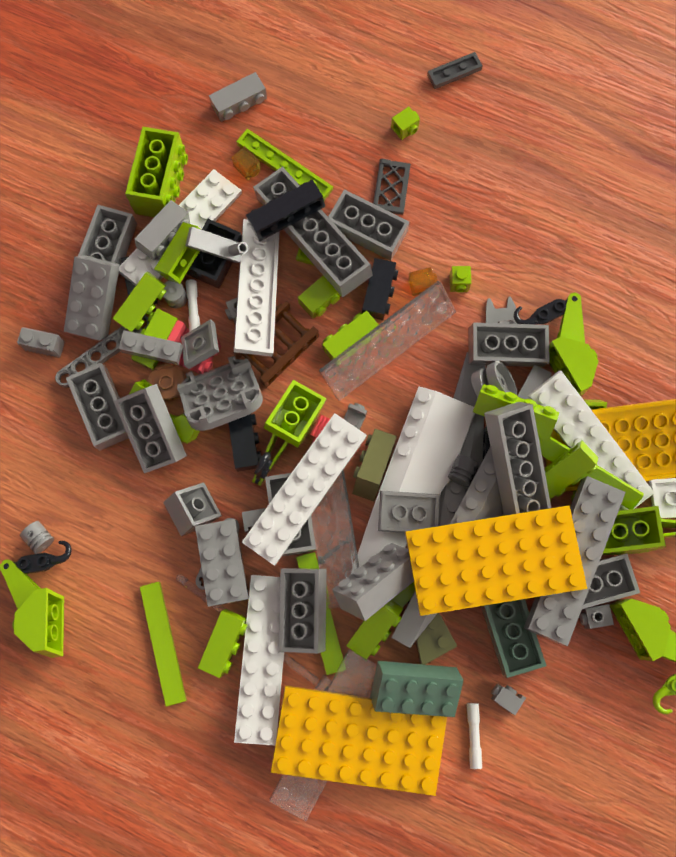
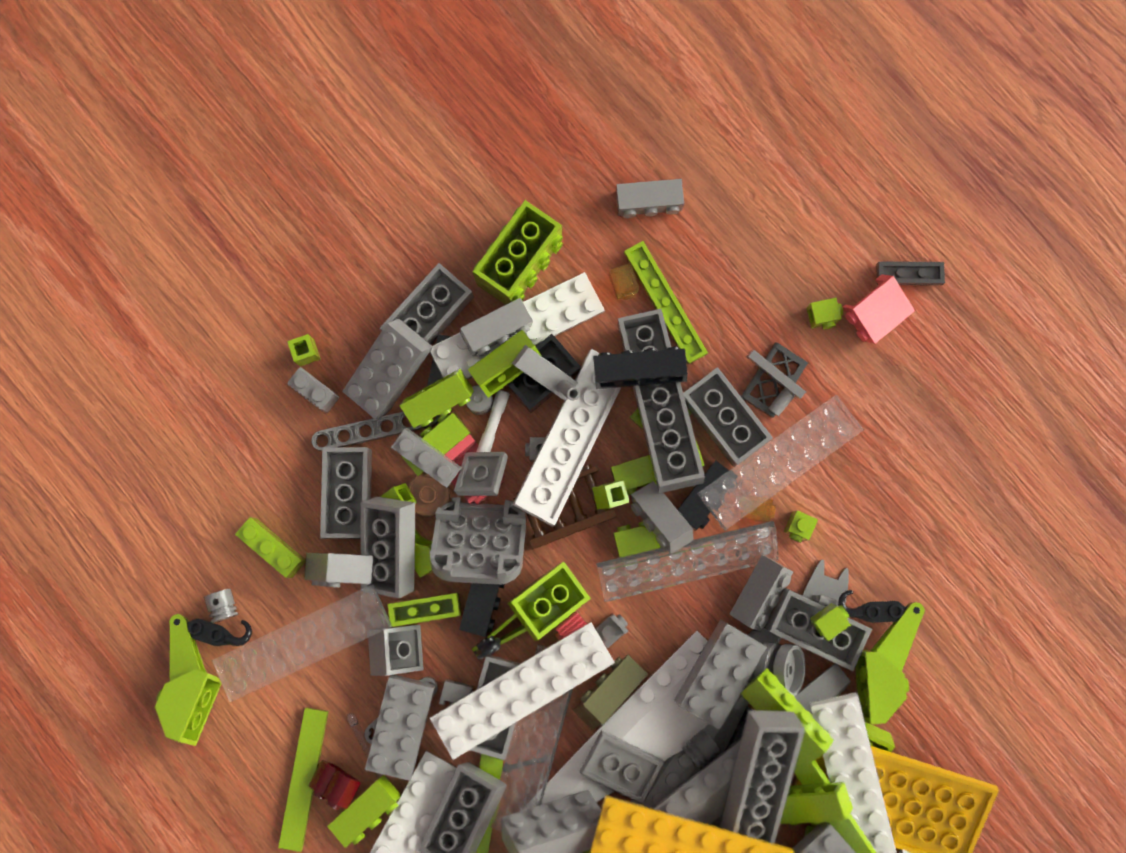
camera: 25 degrees right, 5 degrees up
(20, 314) = (303, 350): none -> lime brick
(58, 474) = (270, 547): none -> lime brick
(114, 535) = (302, 643): none -> clear plate
(117, 461) = (334, 569): none -> light grey wedge
(188, 633) = (334, 785): none -> dark red brick
(201, 466) = (424, 609): none -> lime brick
(306, 315) = (610, 495): none -> lime brick
(353, 314) = (662, 518): none -> light grey brick
(406, 183) = (790, 389): none -> light grey piece
(422, 239) = (780, 462): none -> clear plate
(444, 102) = (879, 310): none -> panel
(451, 406) = (720, 674): none -> light grey brick
(454, 338) = (761, 593): none -> light grey brick
(515, 330) = (830, 621): none -> lime brick

